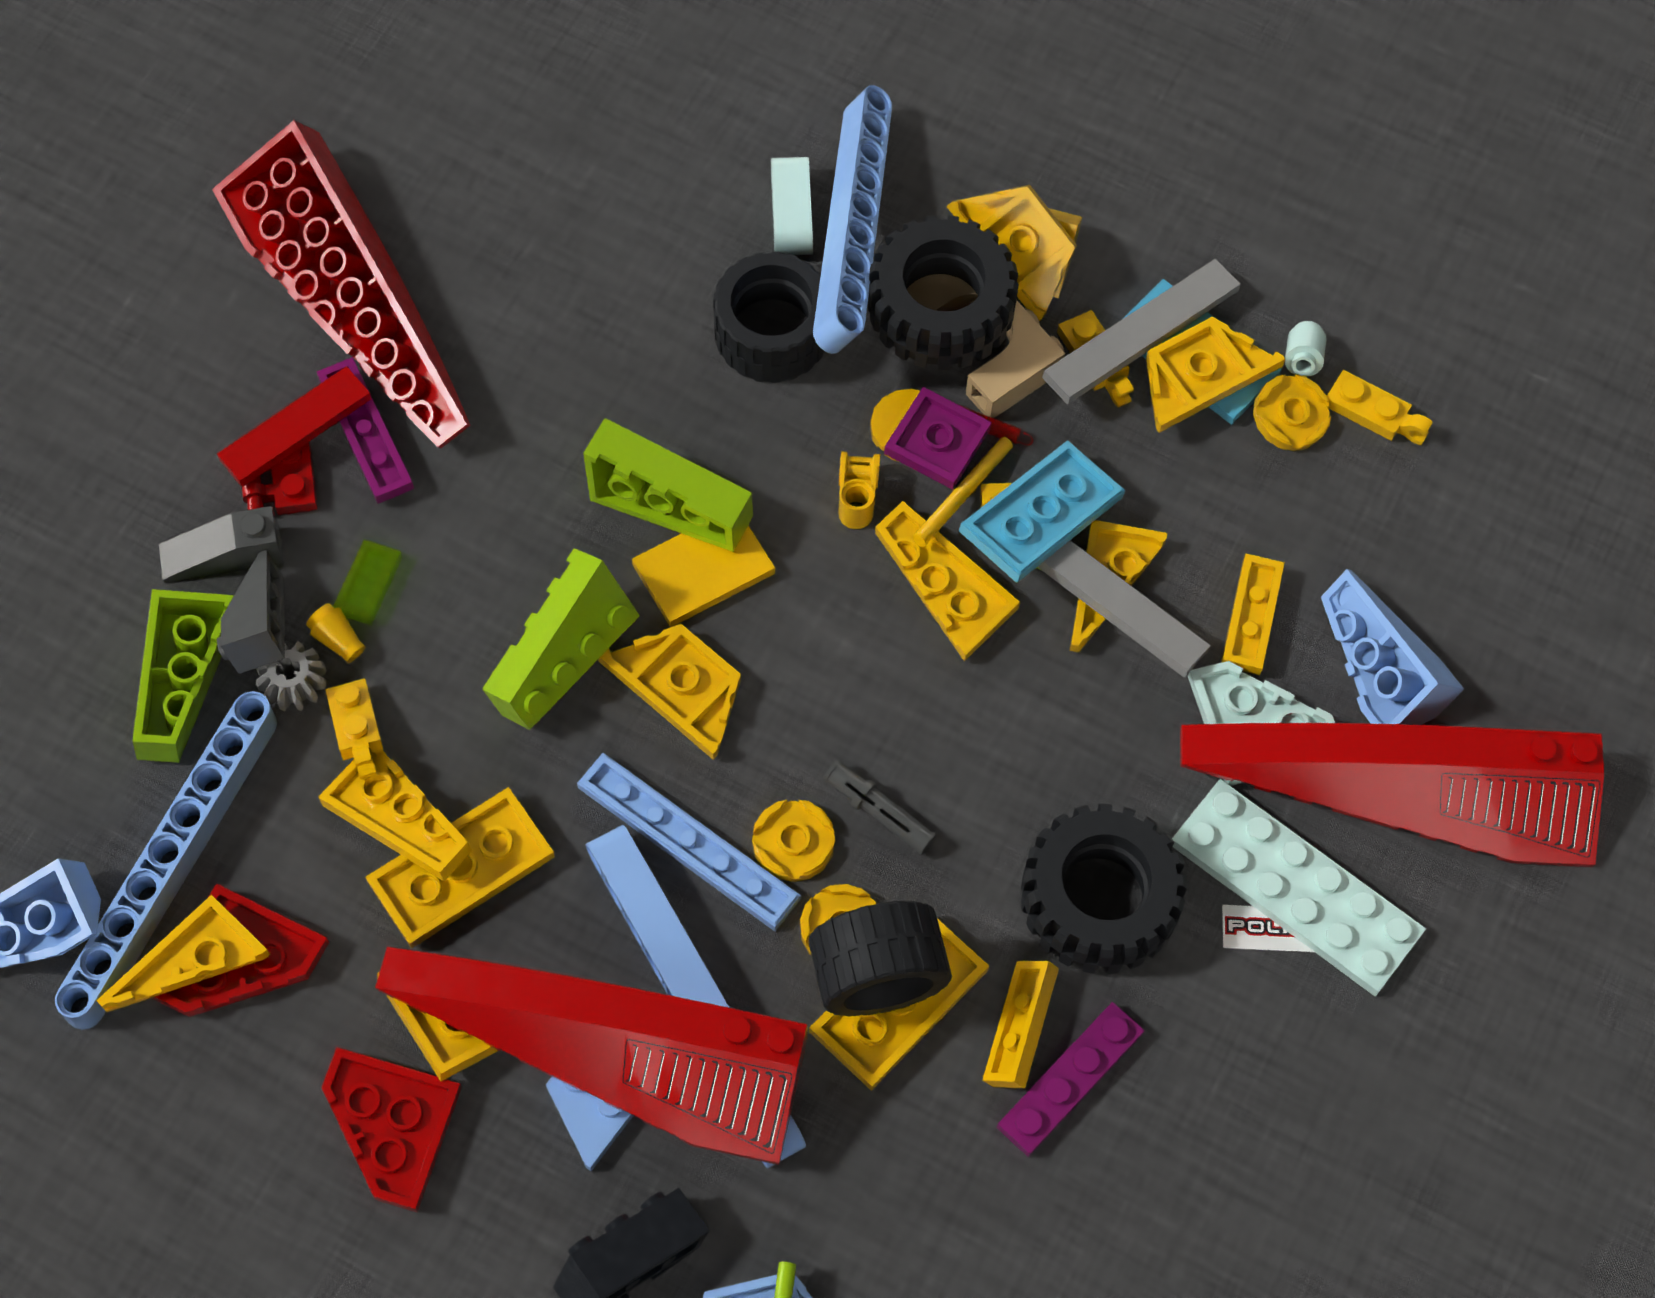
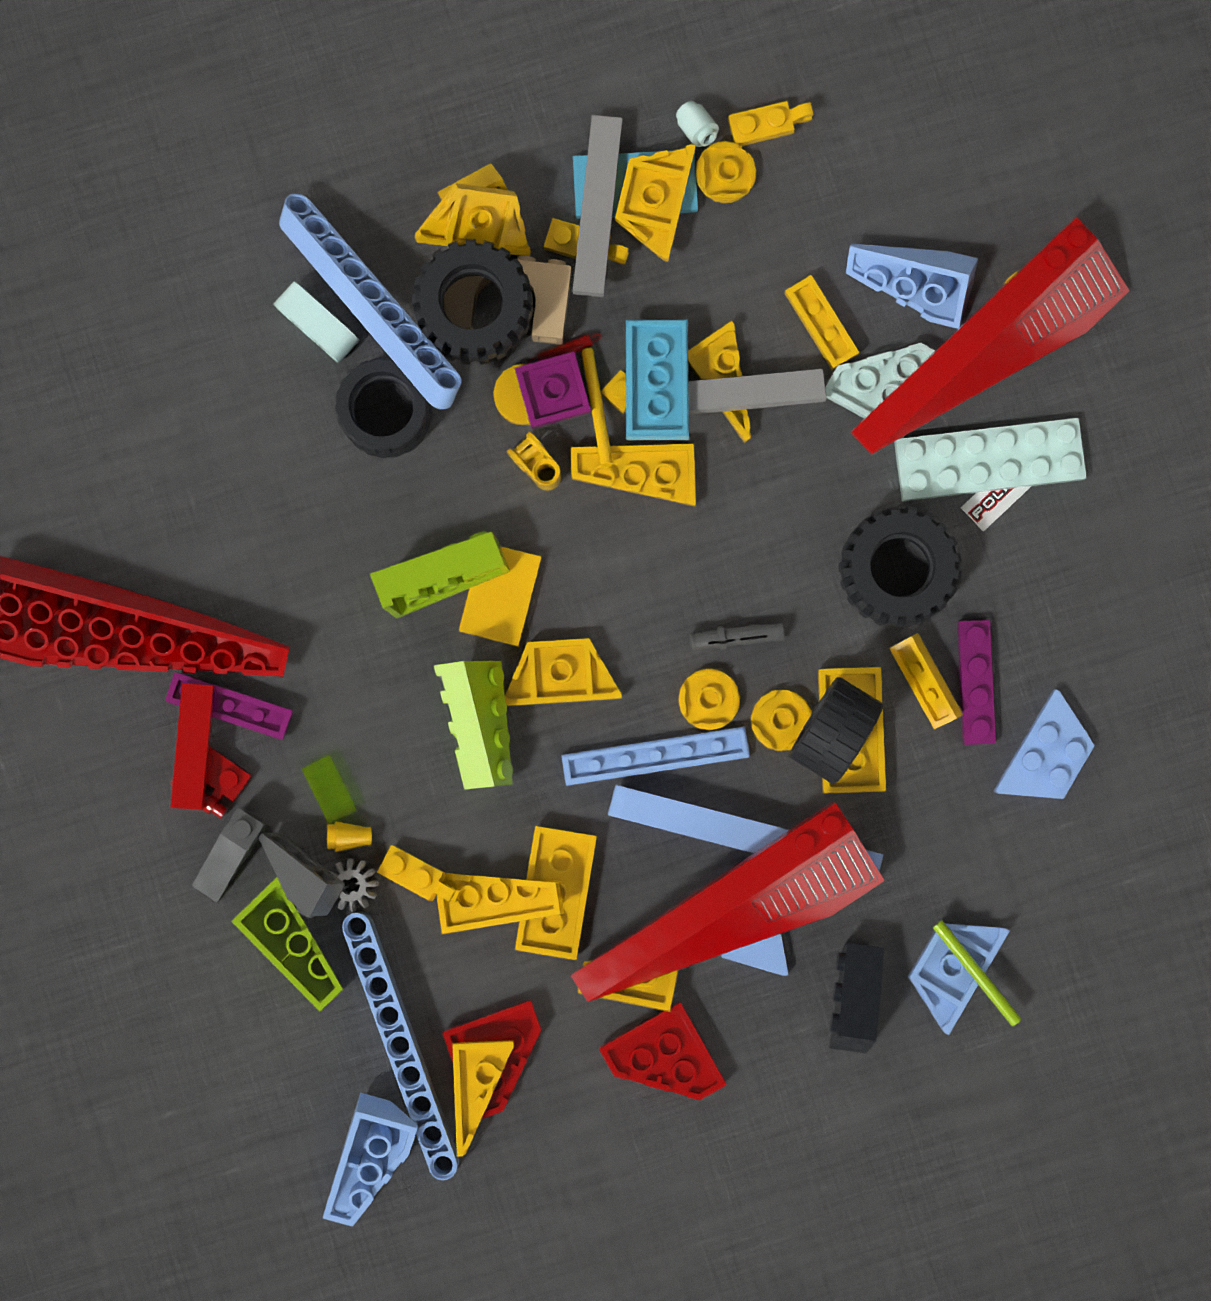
camera: 45 degrees left, 20 degrees up
(1073, 1221) = (1049, 754): none -> light blue wing

